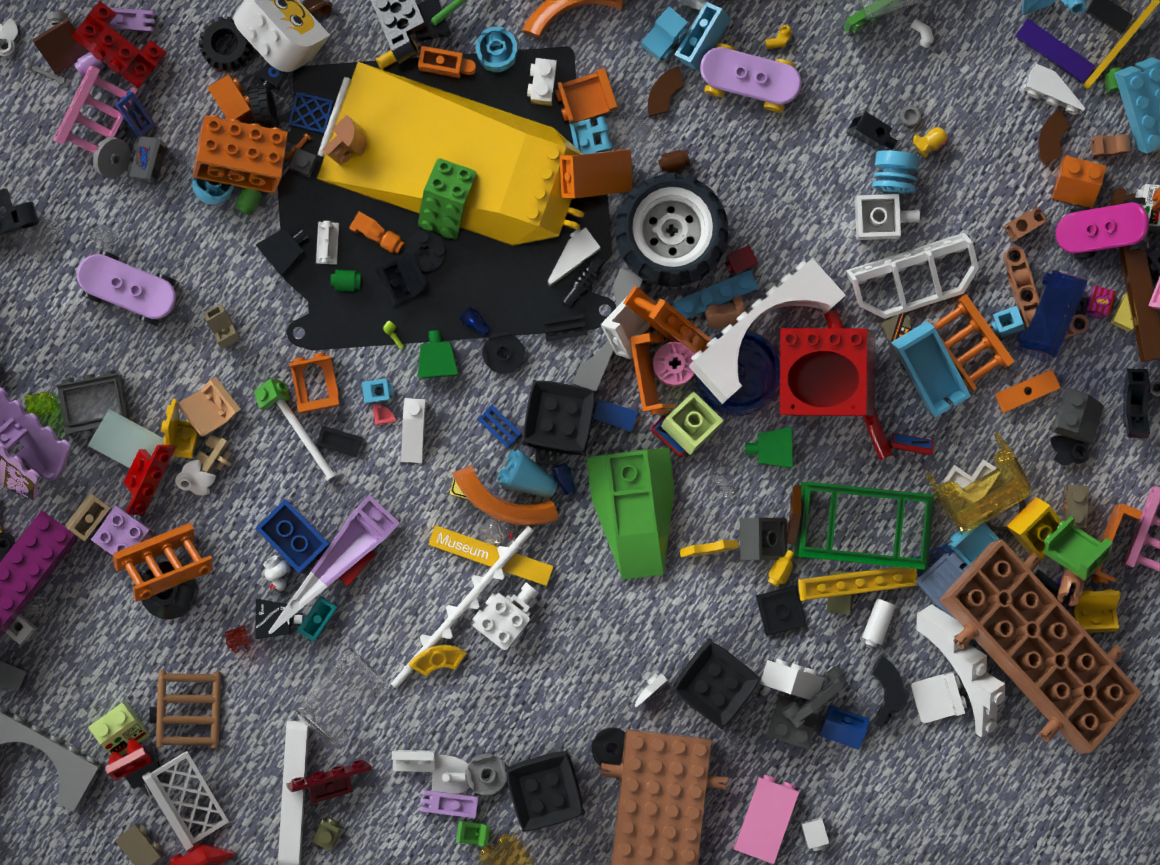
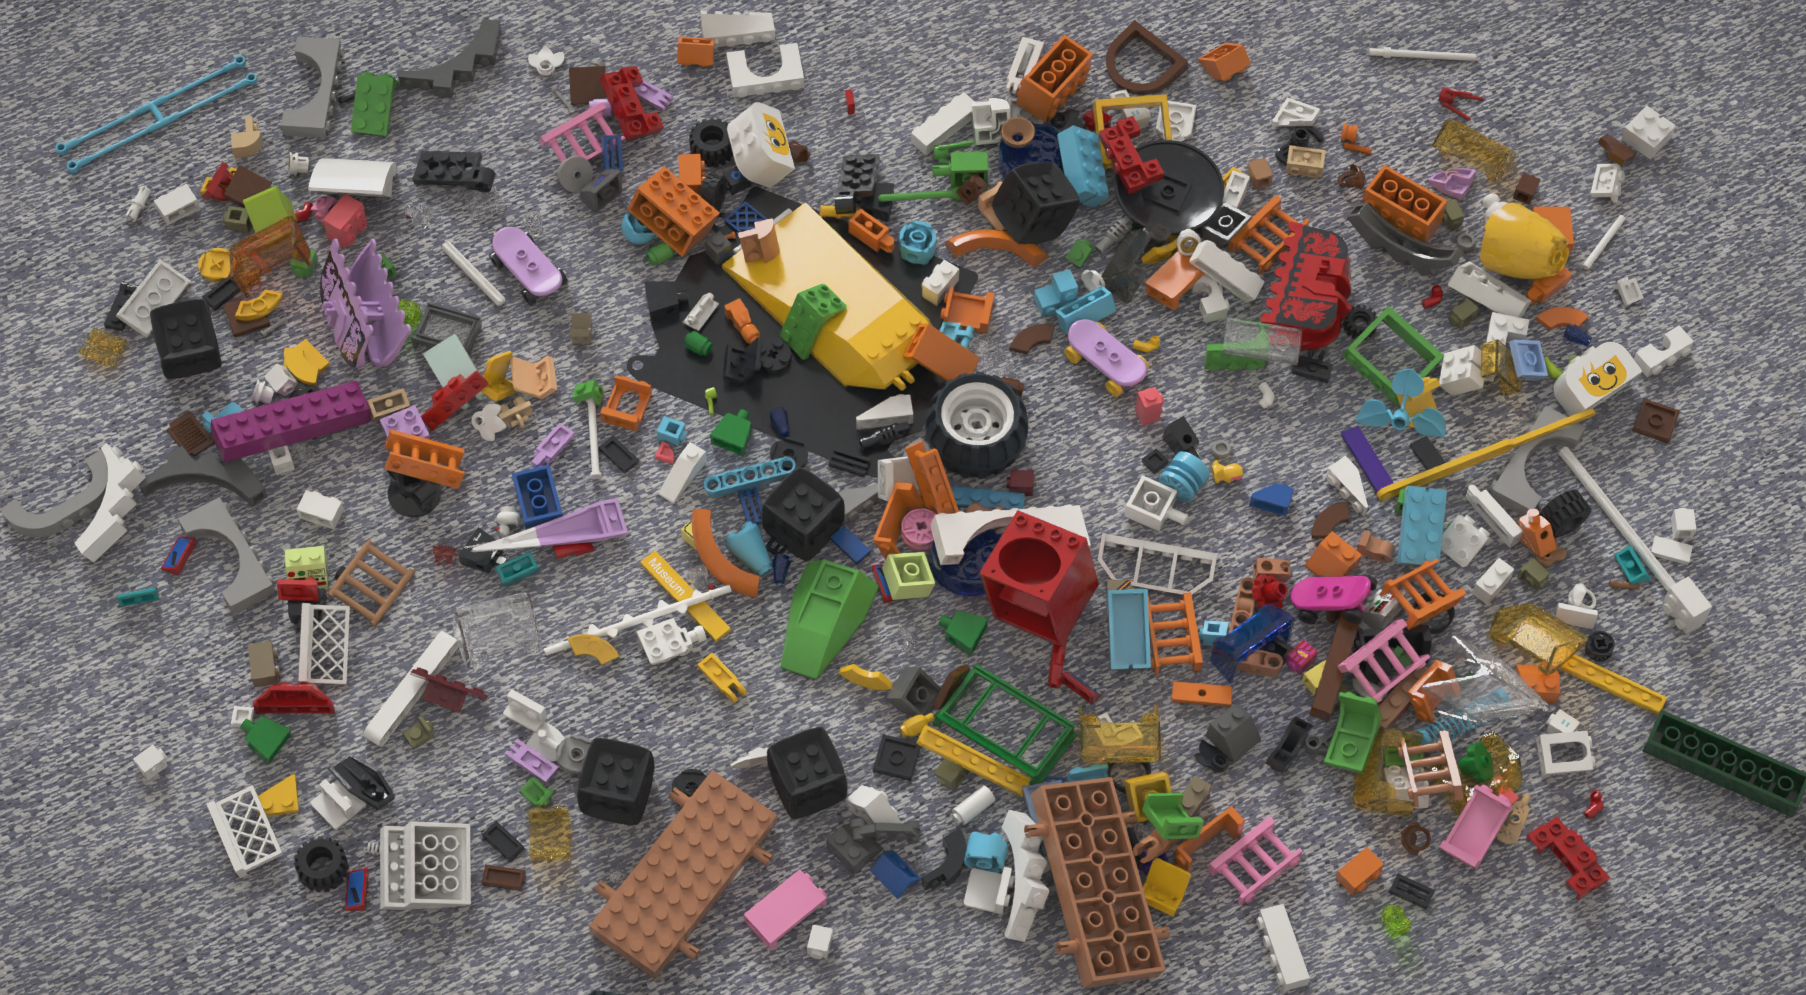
camera: 25 degrees right, 25 degrees down
(77, 322) = (473, 273): none -> white axle
(92, 660) = (320, 509): none -> white brick
(271, 468) = (552, 445): none -> lavender hinge
(477, 409) = (741, 474): none -> medium azure beam
(572, 620) = (721, 676): none -> yellow hinge
(822, 111) = (1149, 406): none -> coral brick
(854, 164) = (1155, 461): none -> black tile
(919, 667) = (986, 852): none -> medium azure brick
(991, 144) = (1273, 498): none -> blue slope
(1038, 253) = (1269, 591): none -> red plant

